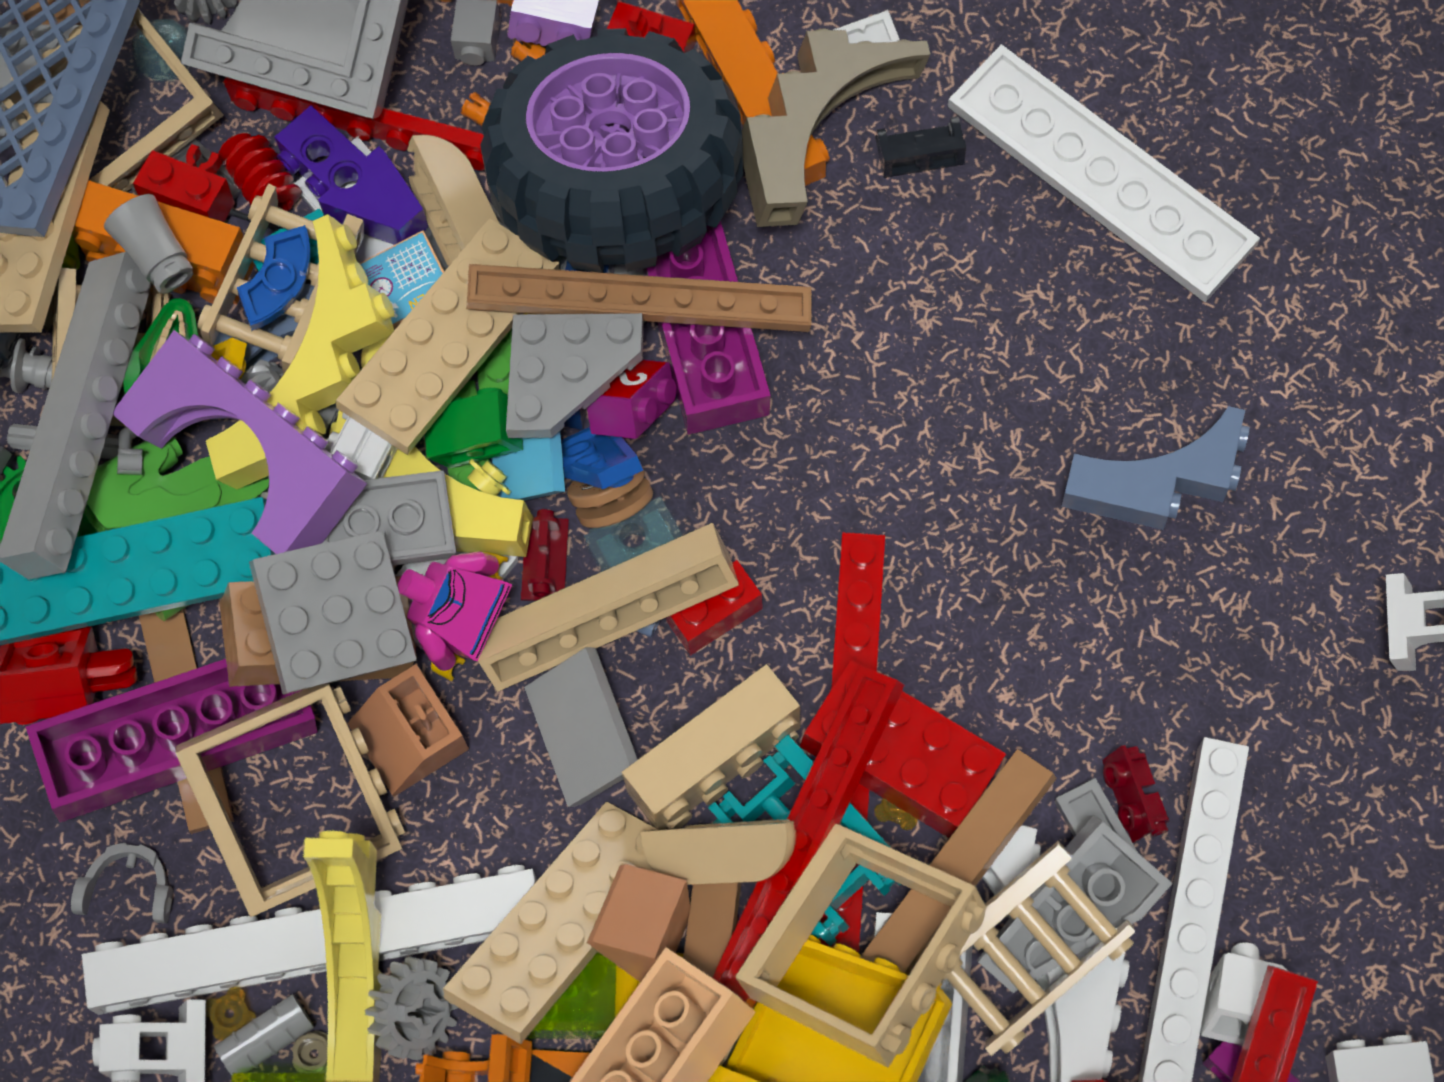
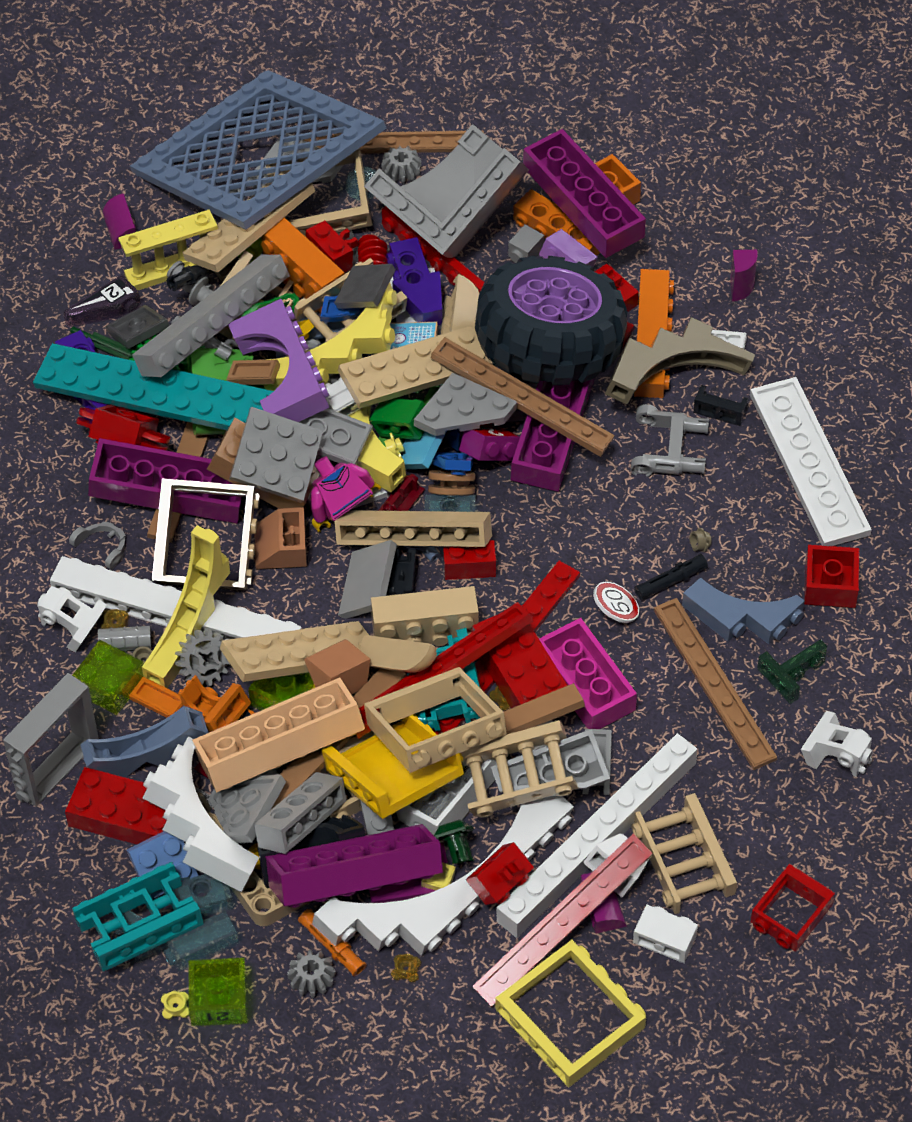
camera: 25 degrees right, 15 degrees down
(150, 242) = (294, 251): light grey plant -> none
(199, 474) = (253, 372): none -> medium nougat tile
(295, 242) = (364, 286): none -> flat silver tile
(632, 691) = (402, 573): none -> black hinge
(911, 274) = (674, 462): none -> light grey connector
(971, 558) = (616, 602): none -> piece
(1009, 703) = (593, 672): none -> dark pink brick
(1028, 381) = (702, 538): none -> dark tan plate
(1029, 456) = (679, 573): none -> black pin
(1127, 773) = (630, 739): dark red hinge -> none
(1190, 611) = (715, 684): none -> medium nougat tile
(1255, 346) = (831, 576): none -> red brick
(1285, 550) = (785, 676): none -> clear green bracket
(1367, 909) = (701, 835): none -> tan fence

